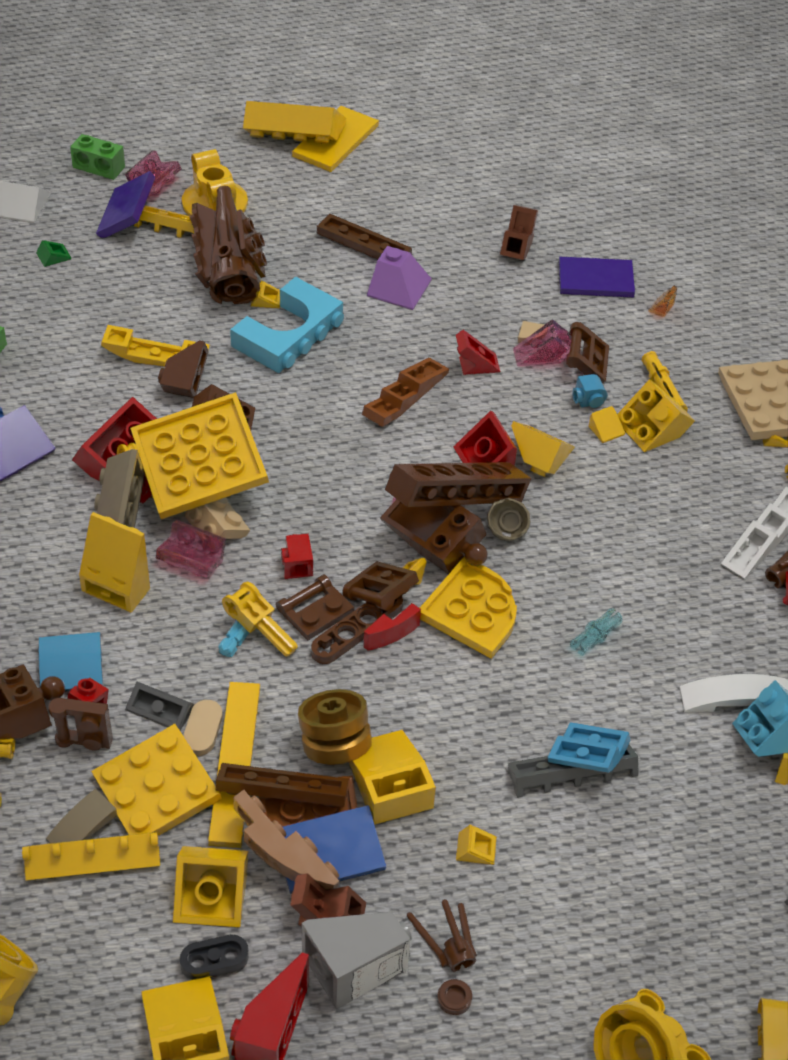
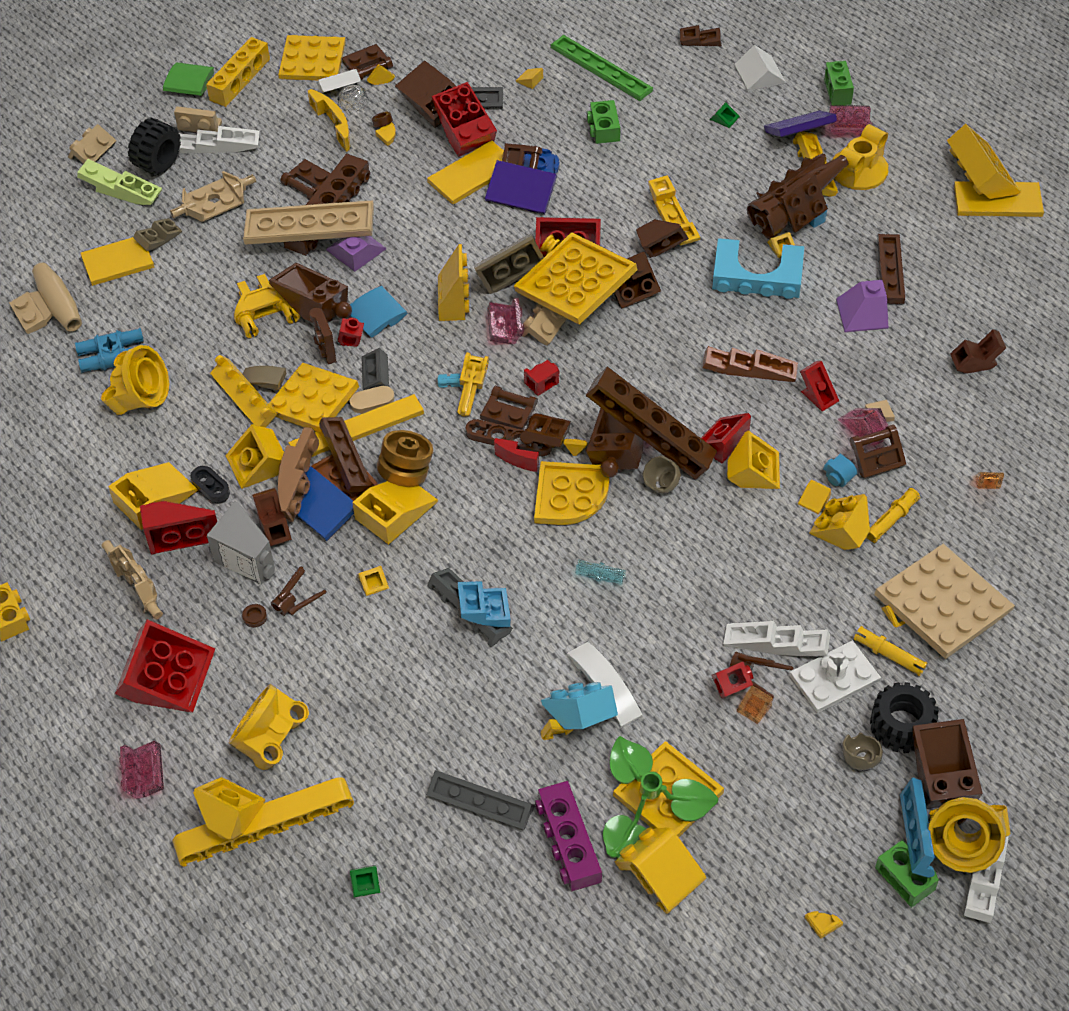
camera: 65 degrees right, 5 degrees up
(596, 277) = (983, 425): dark purple tile -> none

